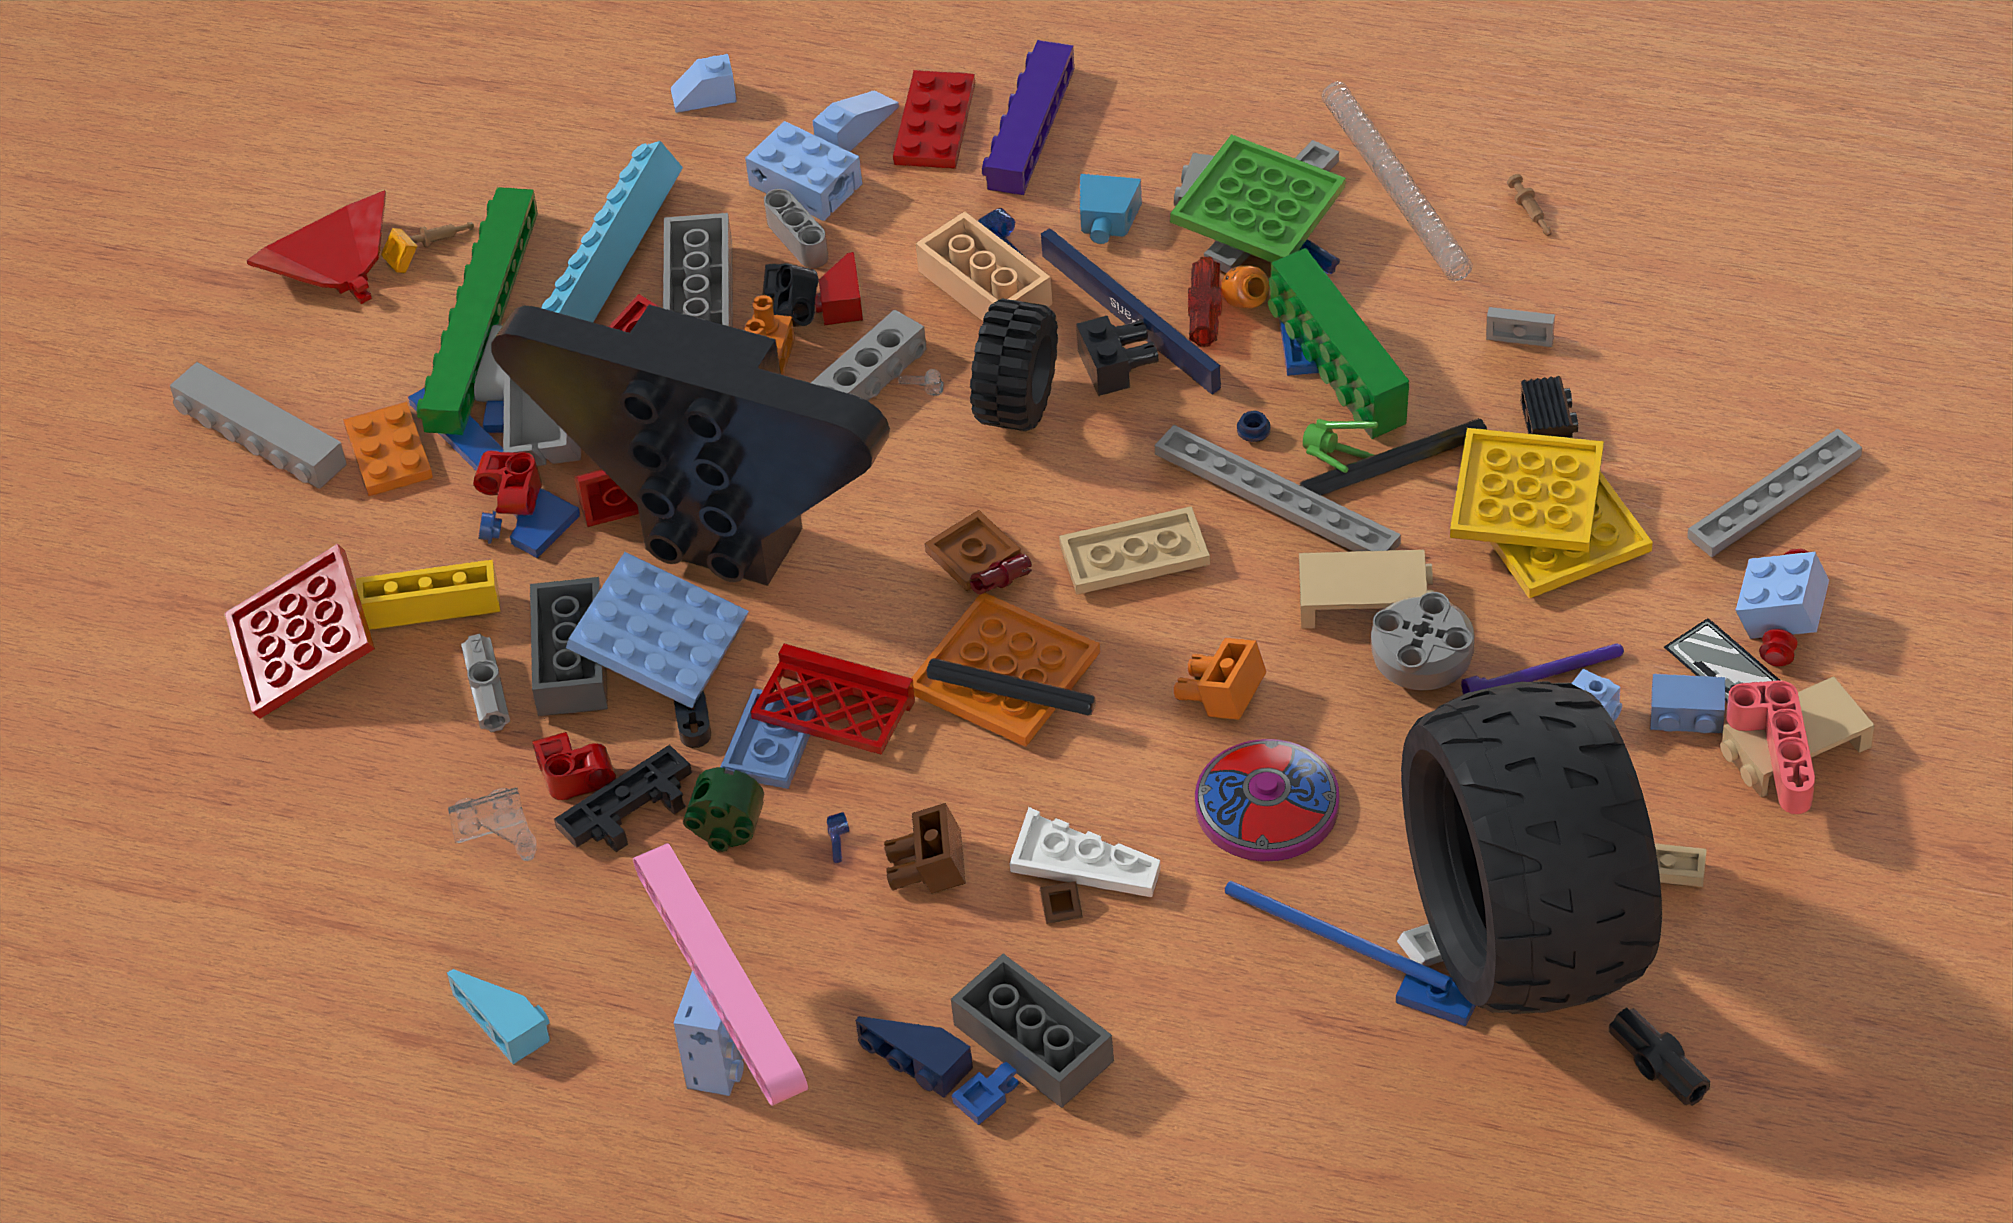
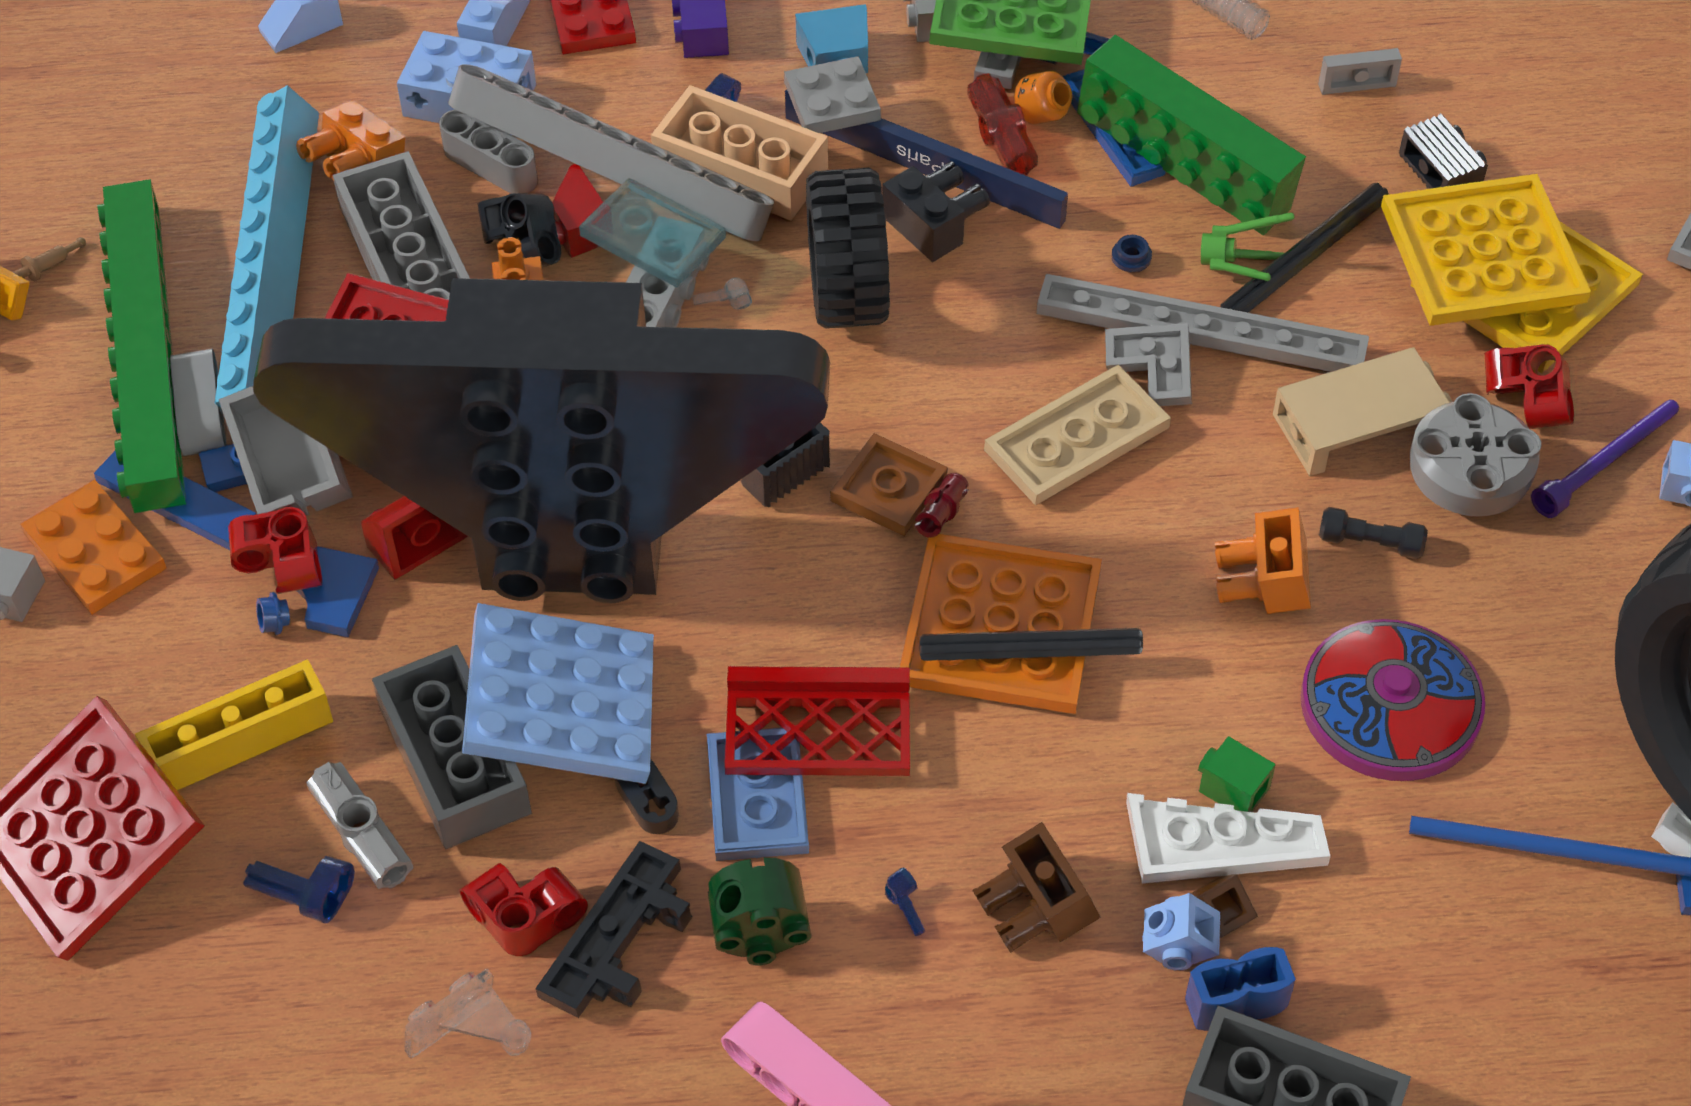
camera: 25 degrees left, 5 degrees up
(436, 721) = (316, 897): none -> clear blue piece
(694, 191) = (350, 139): none -> orange brick
(880, 250) = (608, 150): none -> light grey beam
(882, 318) = (652, 232): none -> clear light blue tile
(901, 511) = (790, 467): none -> black brick
(1012, 905) = (1181, 932): none -> light blue brick
(1040, 951) = (1253, 986): none -> blue brick
(1073, 245) = (832, 95): none -> light grey plate
(1115, 818) = (1235, 775): none -> green brick
(1228, 507) = (1161, 351): none -> light grey plate
(1295, 667) = (1408, 539): none -> black piece
(1513, 600) = (1546, 397): none -> red piece

